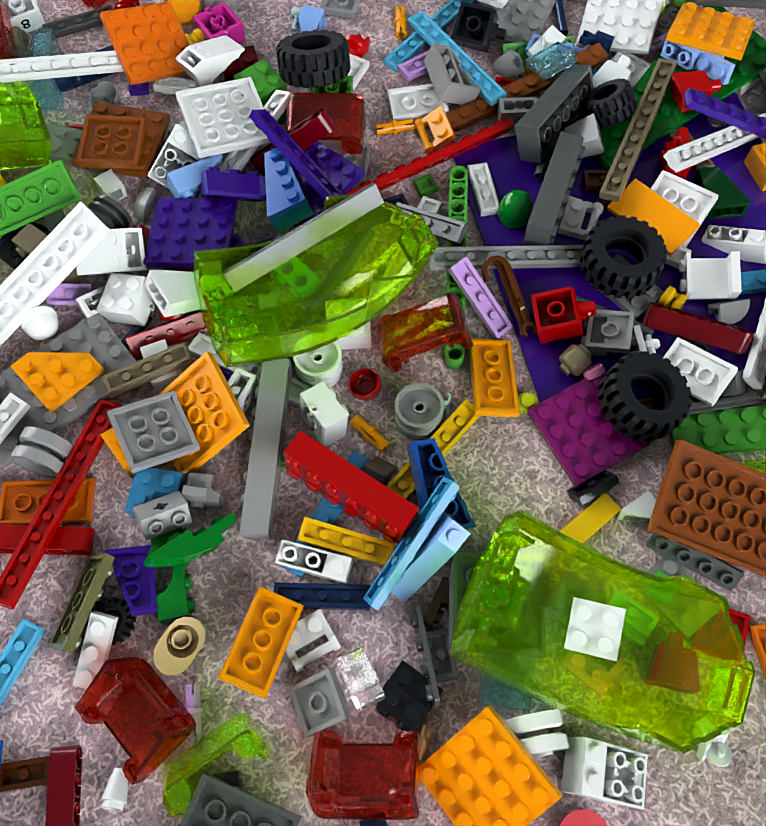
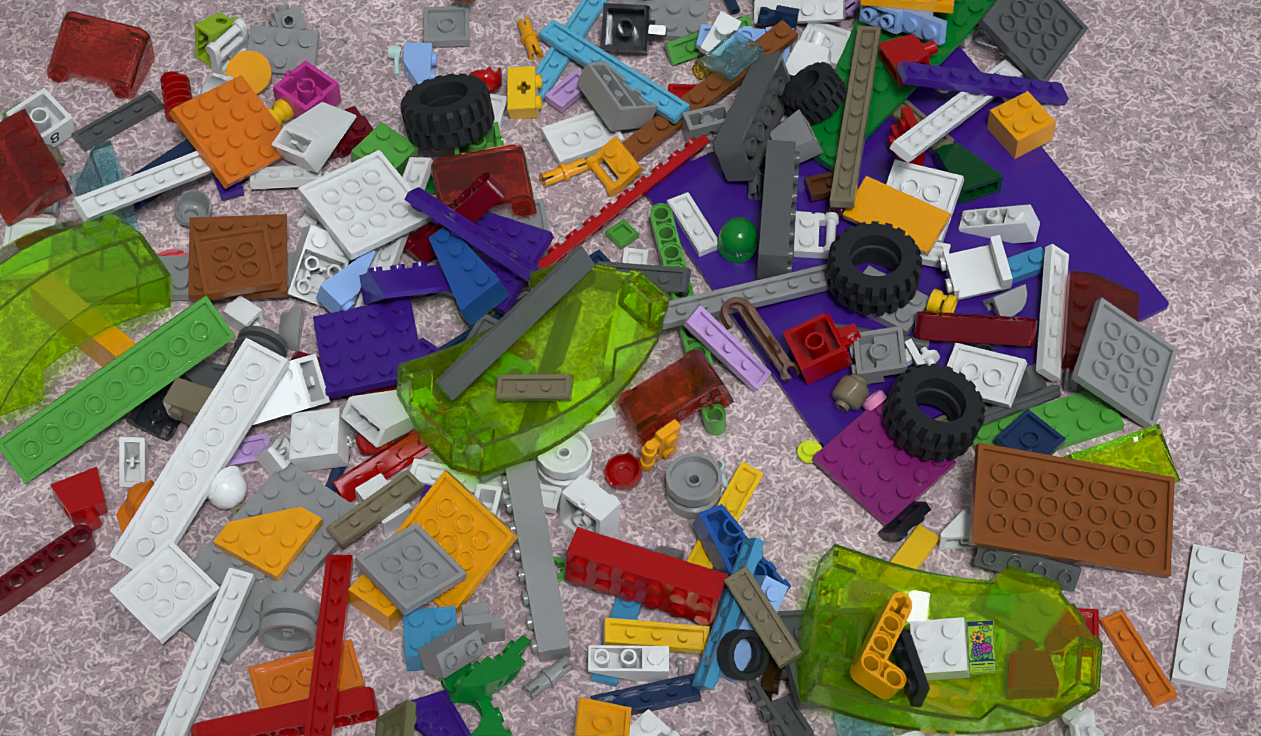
camera: 15 degrees left, 10 degrees down
(244, 555) = (548, 677): none -> light grey pin
(309, 296) = (534, 387): none -> dark tan tile
(370, 433) = (631, 515): light orange pin -> none
(381, 59) = (521, 104): none -> yellow brick
(403, 368) = (661, 446): none -> light orange plate
(424, 596) = (726, 651): none -> black tyre
(439, 559) = (763, 617): none -> dark tan tile
(493, 378) = (765, 433): light orange tile -> none
(509, 65) = (681, 68): light grey brick -> none
(546, 613) = (871, 664): none -> light orange beam
(562, 645) = (909, 662): none -> black plate
(635, 637) = (981, 647): none -> tile
(723, 437) = (1030, 434): none -> dark blue tile

